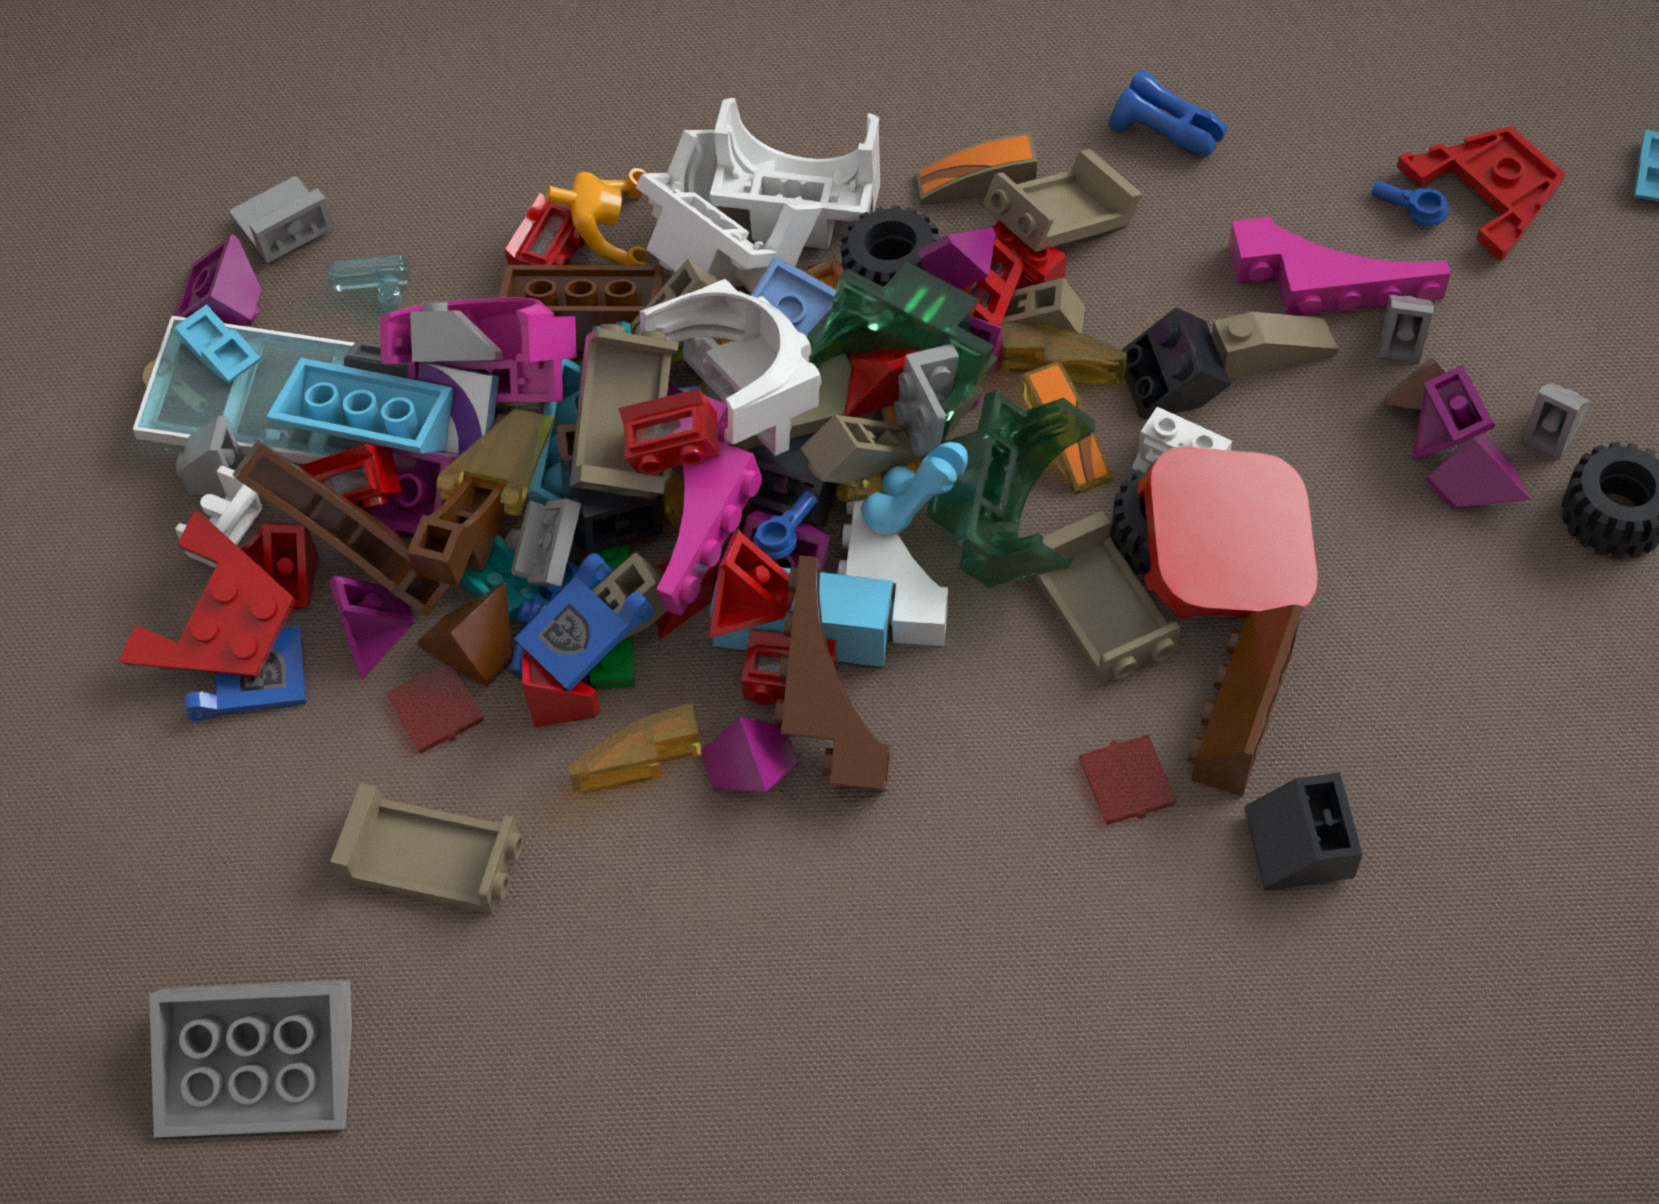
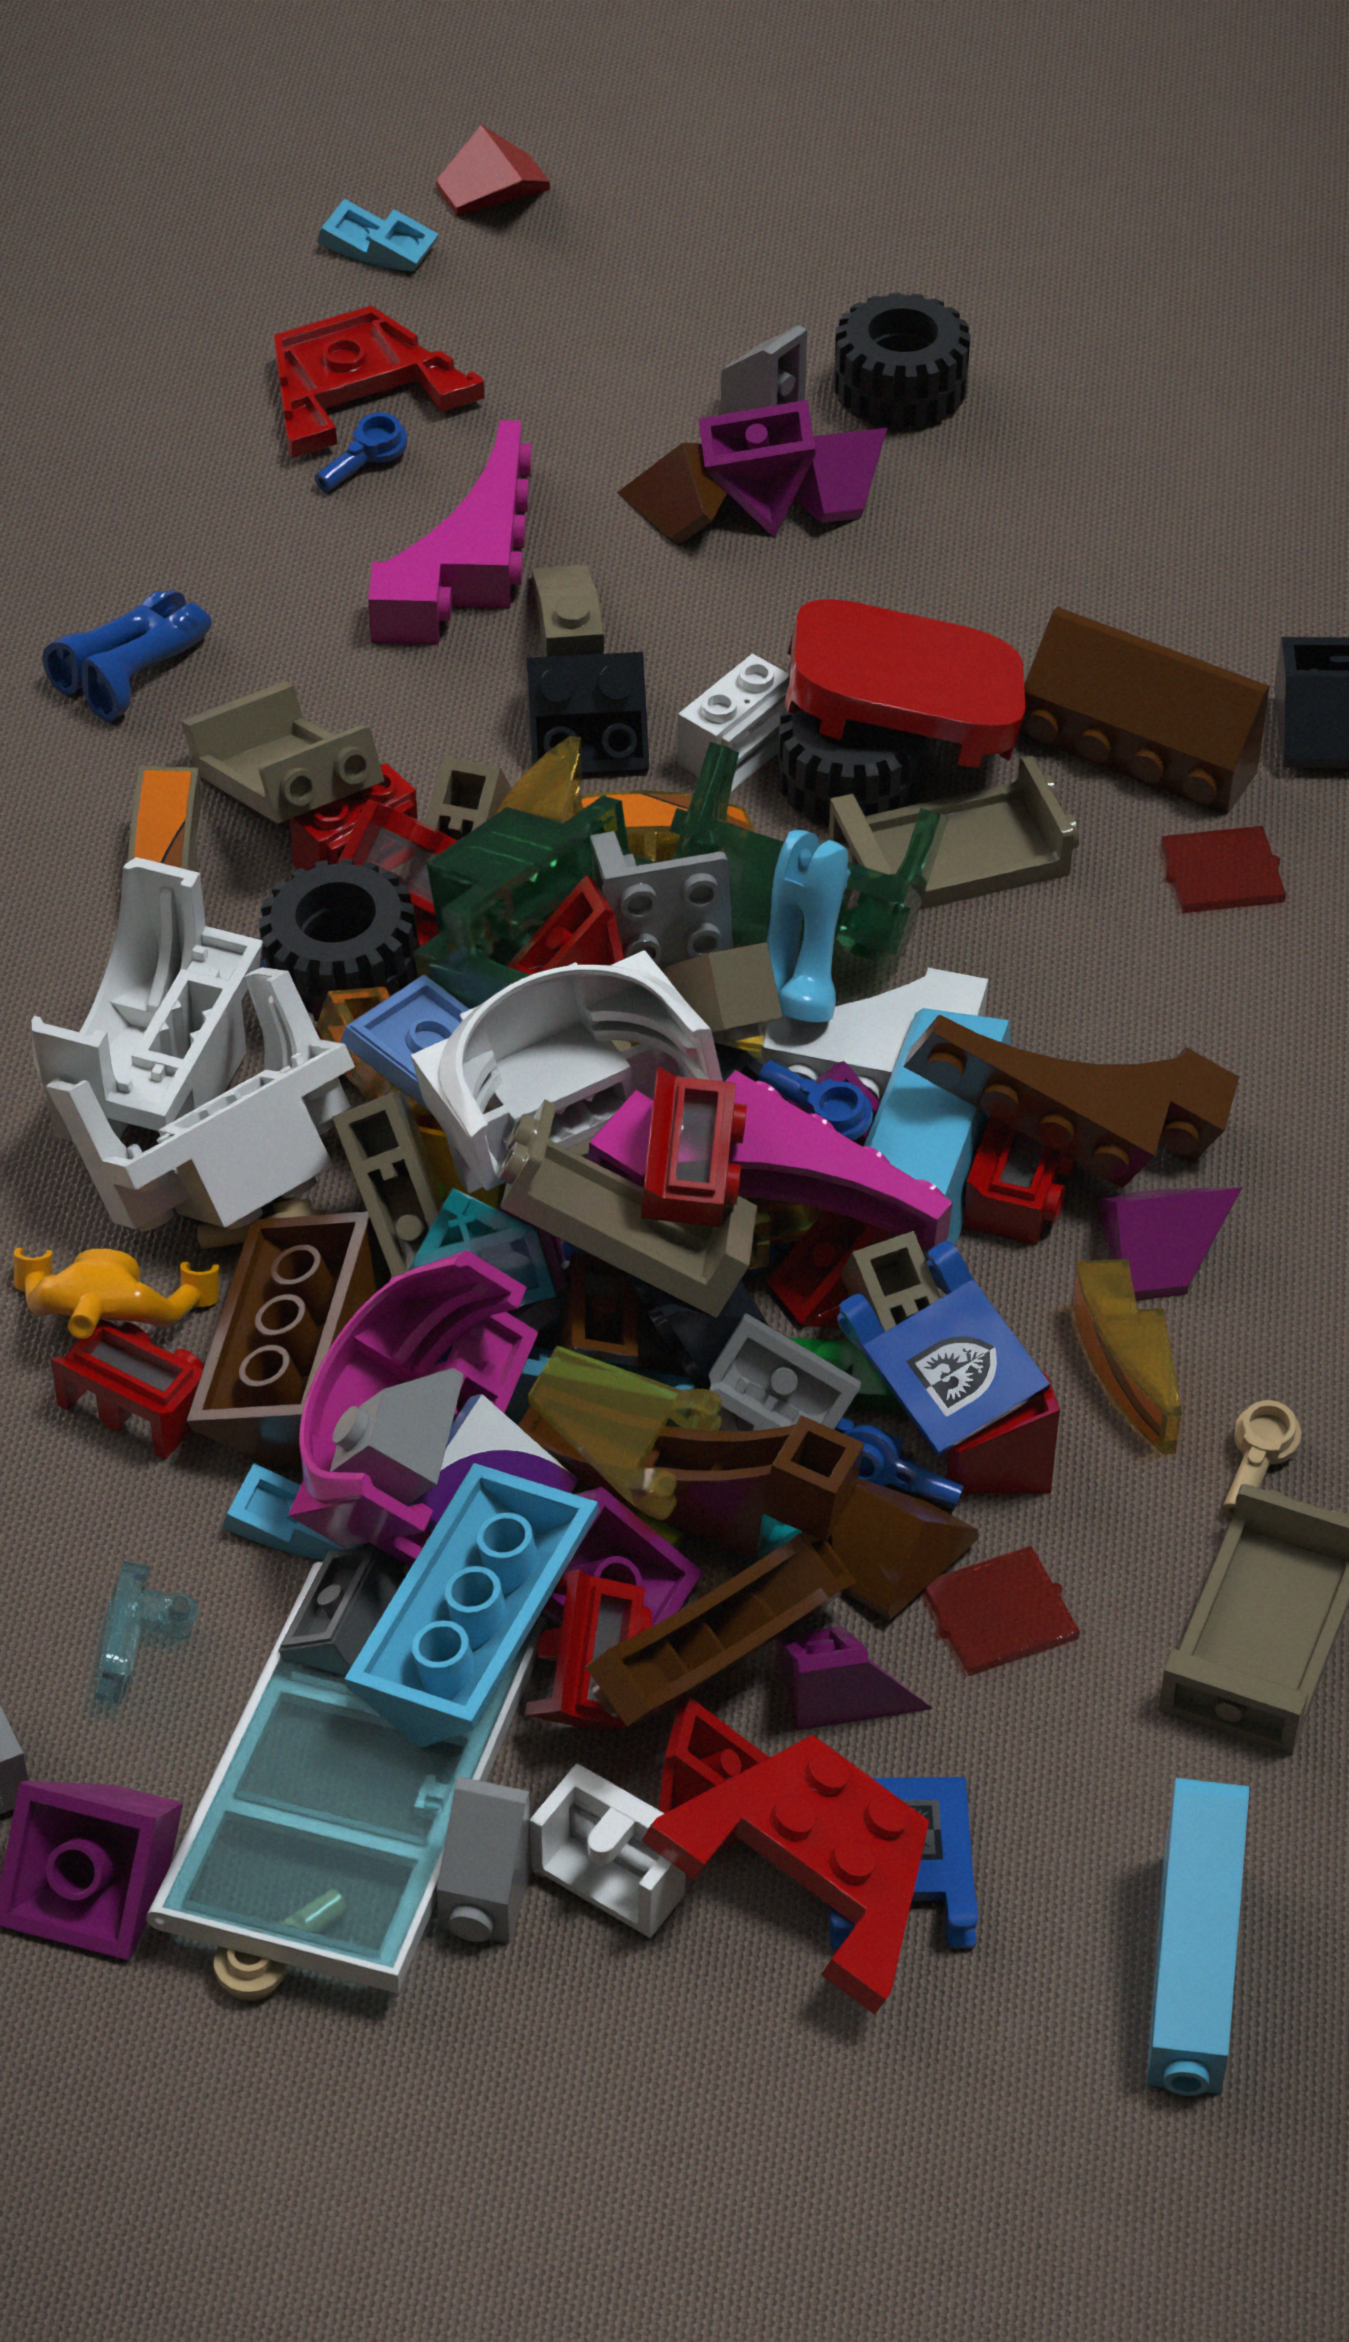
camera: 85 degrees left, 10 degrees down
(172, 821) = (1197, 1937): none -> medium azure slope
(216, 345) = (257, 1833): medium azure slope -> none
(582, 841) = (1265, 1436): none -> tan plate
(748, 589) = (932, 1144): red slope -> none
(960, 257) = (397, 839): magenta slope -> none
(1405, 328) = (585, 480): light grey slope -> none

